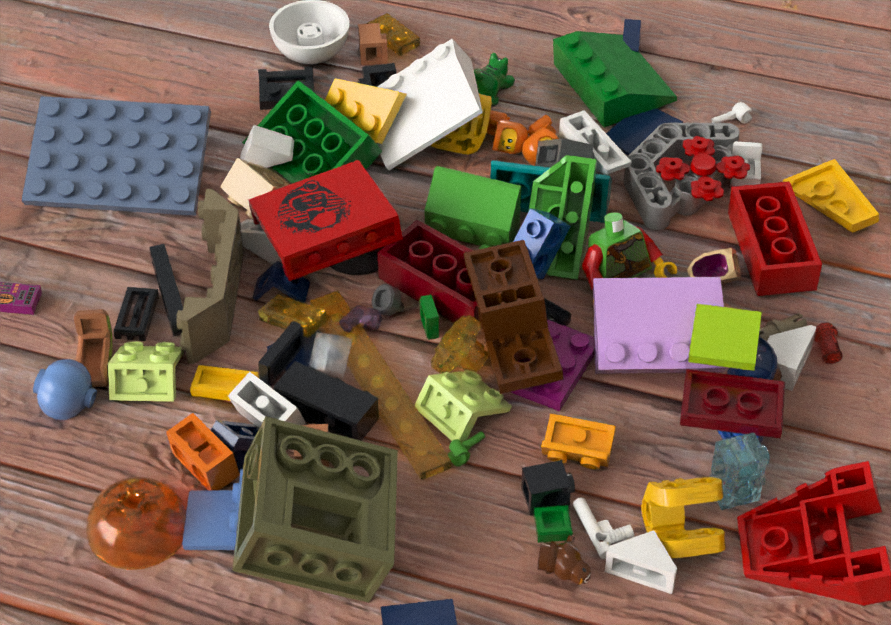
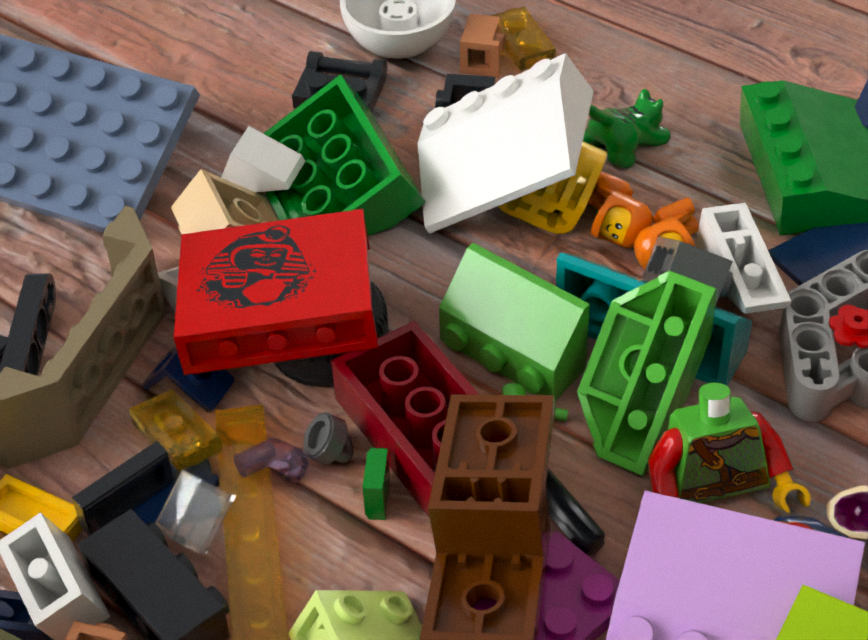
camera: 20 degrees right, 0 degrees up
(366, 106) = (419, 133): yellow wing -> none
(460, 347) = (395, 552): clear yellow plant -> none
(543, 238) = (592, 401): blue brick -> none

